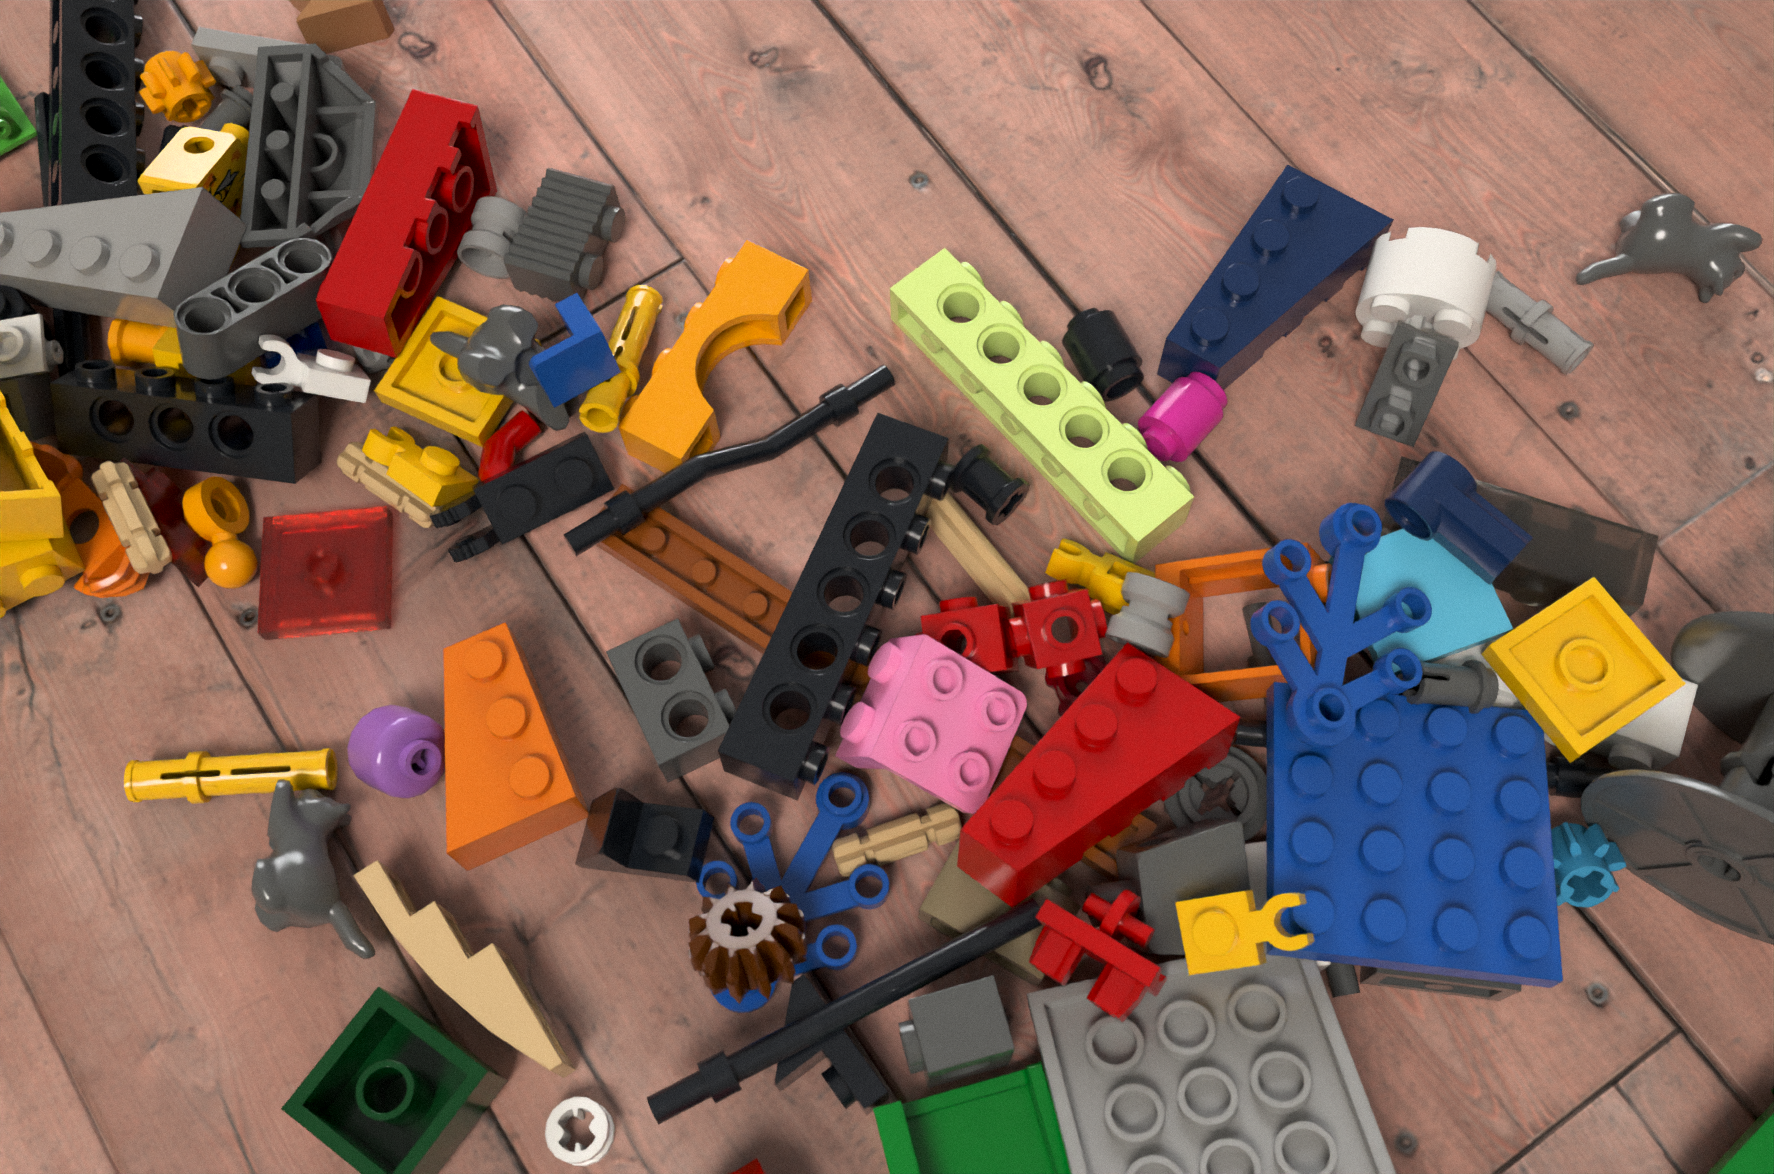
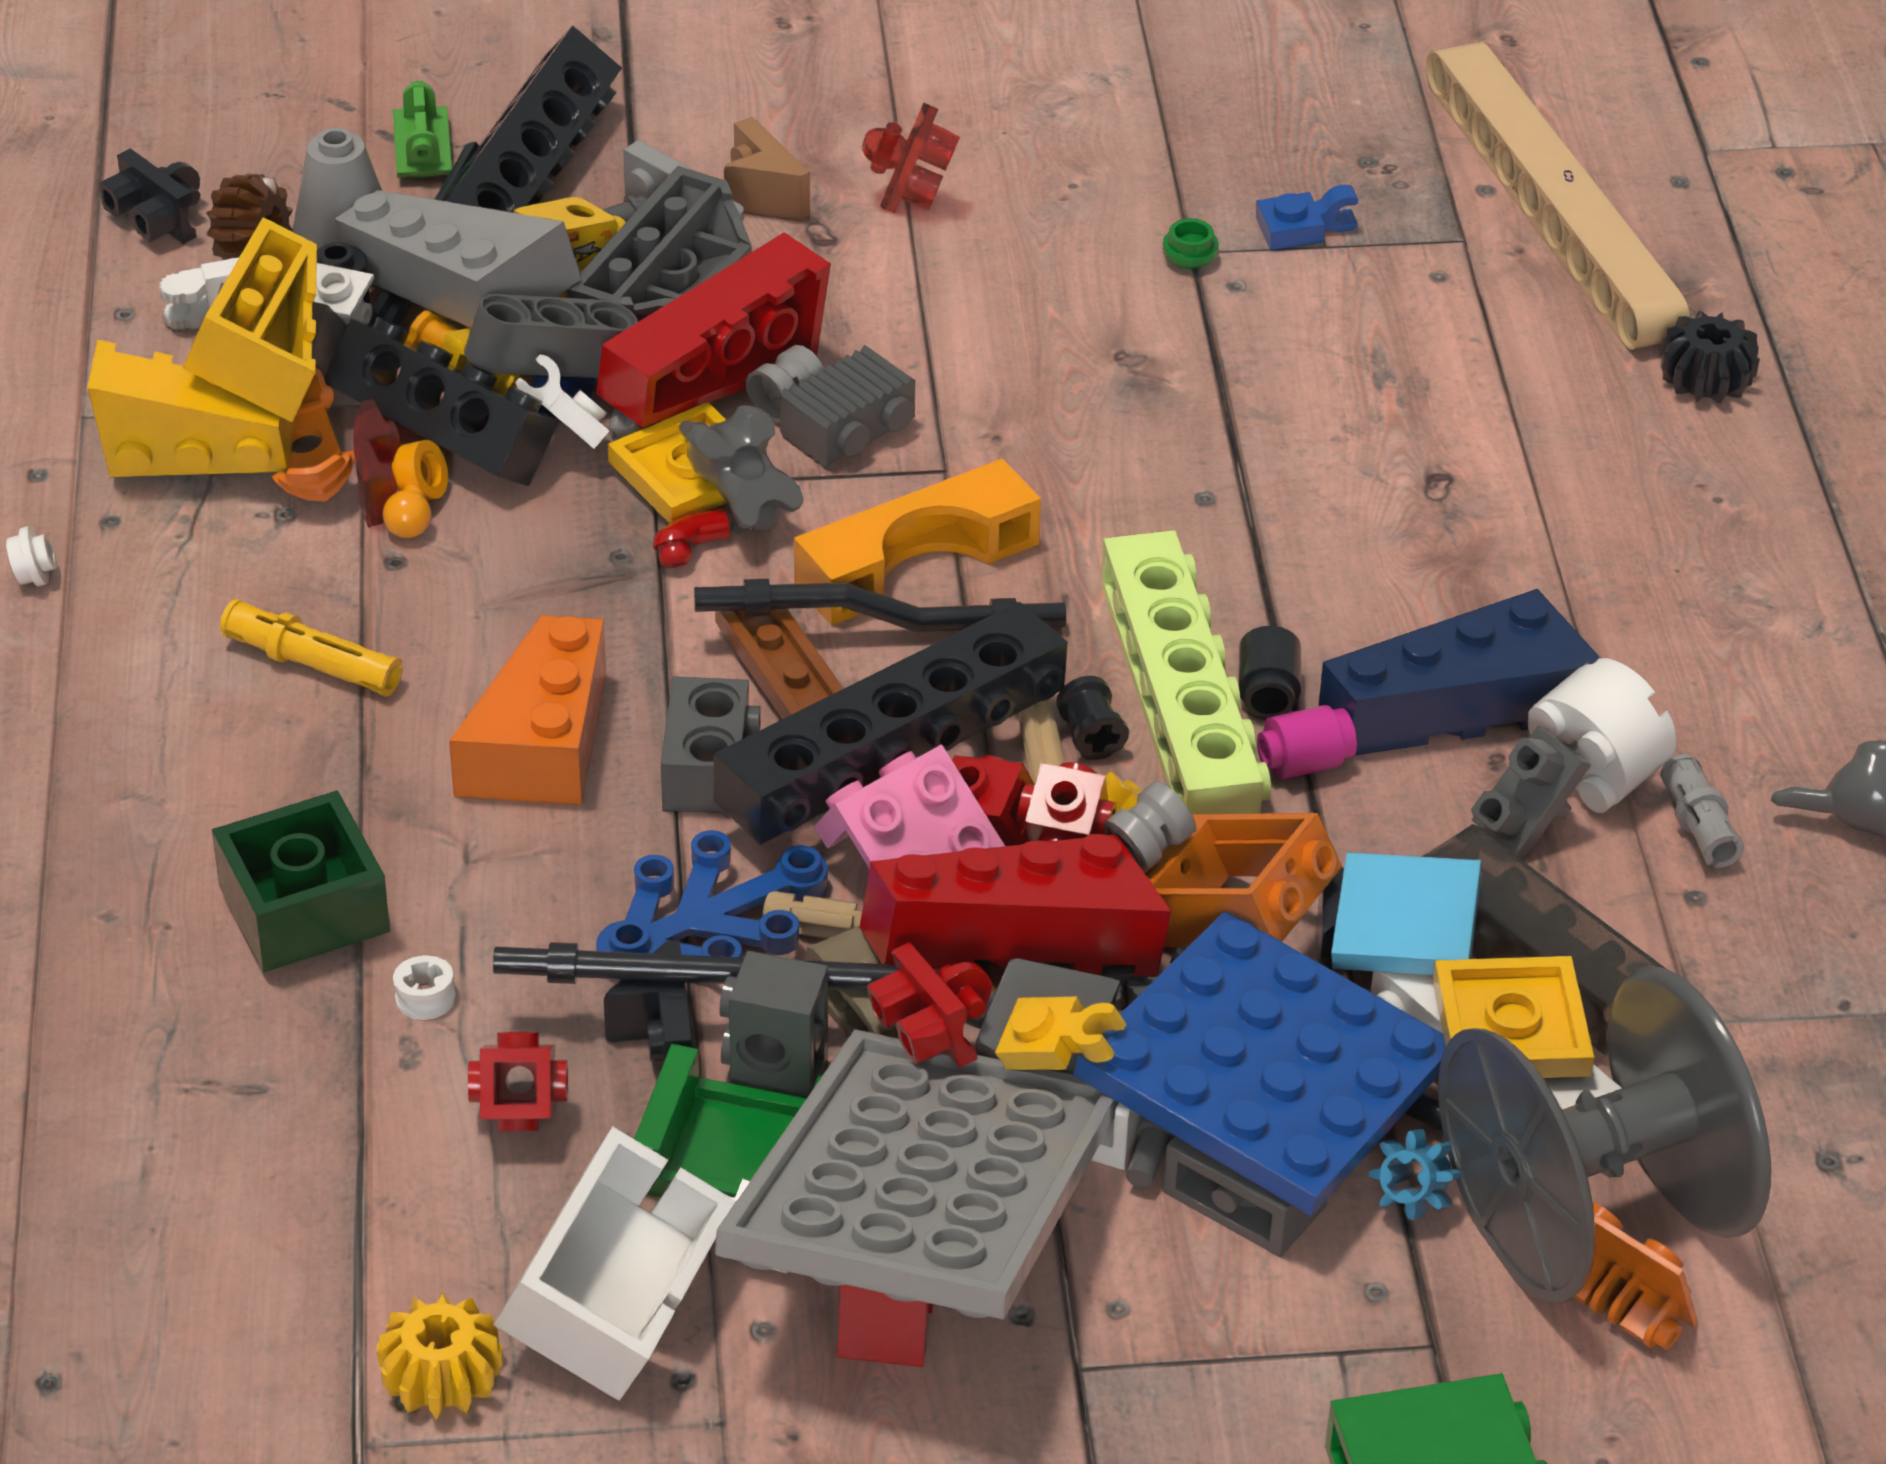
camera: 25 degrees right, 25 degrees down
(131, 517) = (353, 433): tan axle -> none
(177, 86) = (592, 175): light orange gear -> none
(297, 879) = (320, 718): dark grey animal -> none
(326, 573) = (480, 555): clear red plate -> none
(373, 475) = (576, 518): tan axle -> none
(397, 751) = (452, 675): medium lavender head -> none
(427, 472) = (611, 512): yellow plate -> none
(479, 982) = (409, 843): tan slope -> none
(527, 495) = (680, 561): black hinge -> none
(577, 361) = (785, 459): blue panel -> none
(627, 344) = (820, 502): yellow pin -> none
(644, 838) = (609, 818): black slope -> none
(747, 940) = (649, 895): reddish brown gear -> none
(1333, 629) = (1362, 834): blue plant -> none
(1443, 505) = (1463, 842): dark blue piece -> none
(1456, 685) = (1383, 979): dark grey pin -> none

